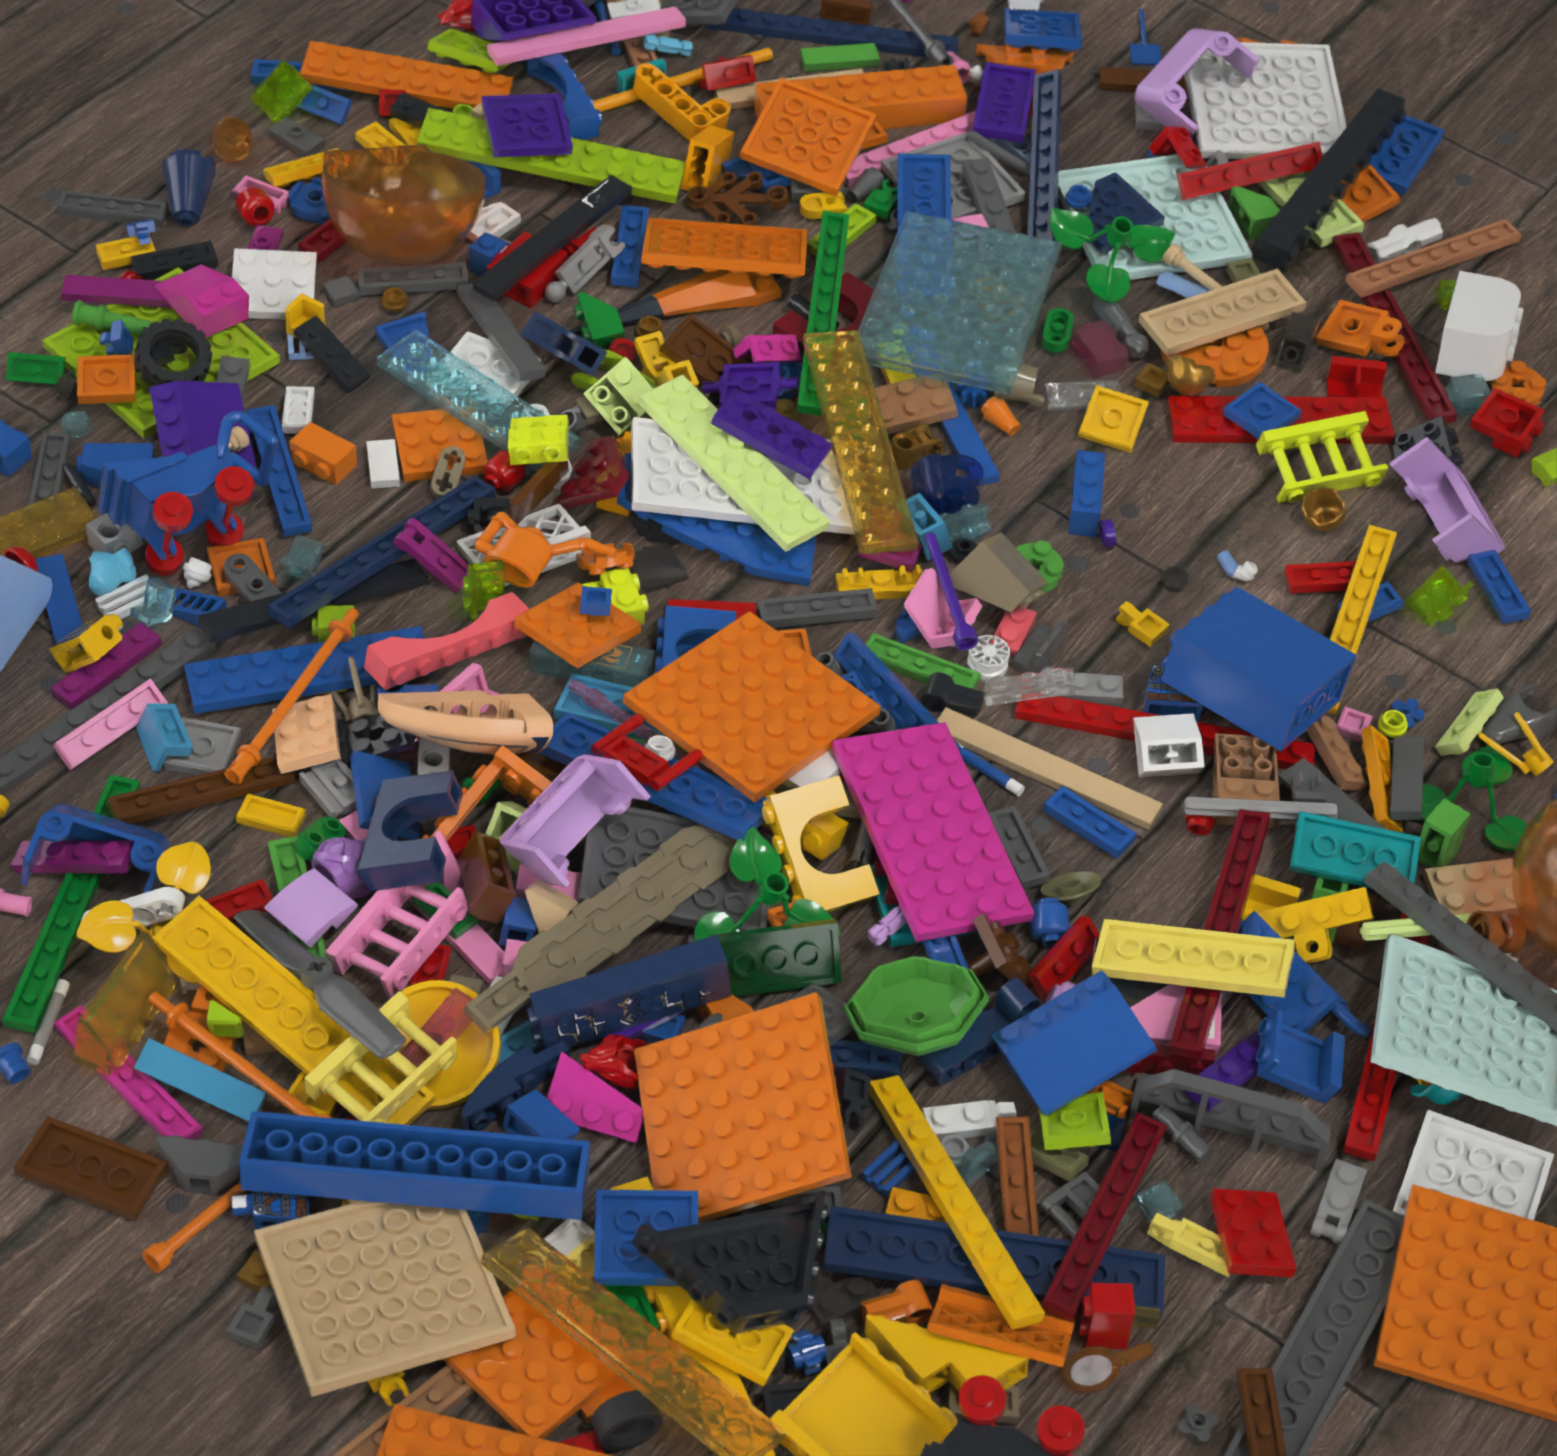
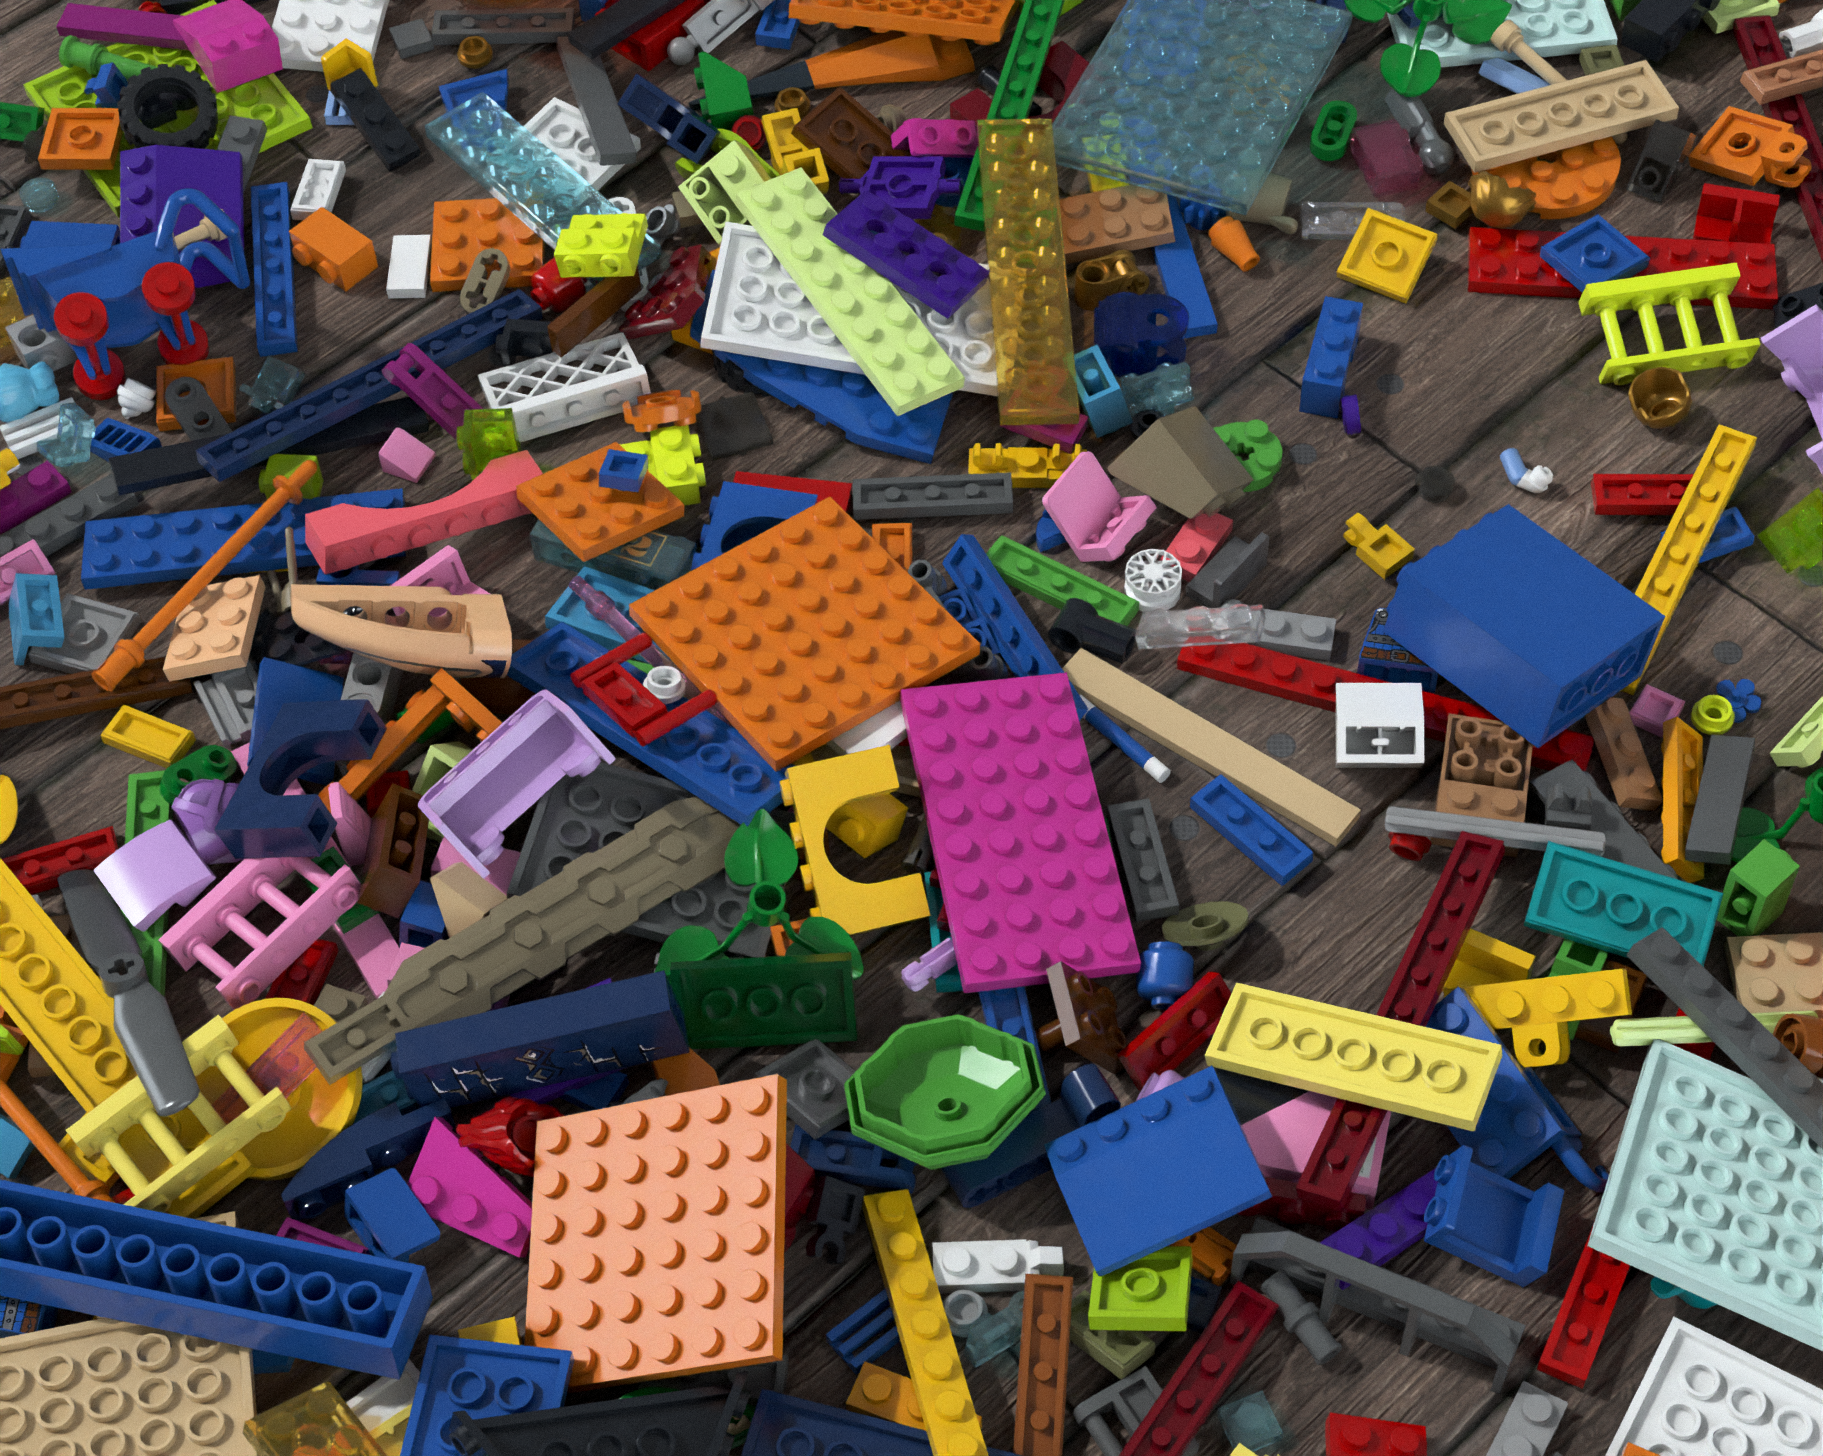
camera: 15 degrees right, 5 degrees up
(416, 603) = (405, 456): none -> bright pink slope
(526, 550) = (549, 395): orange piece -> none
(964, 635) = (1119, 548): dark purple piece -> none

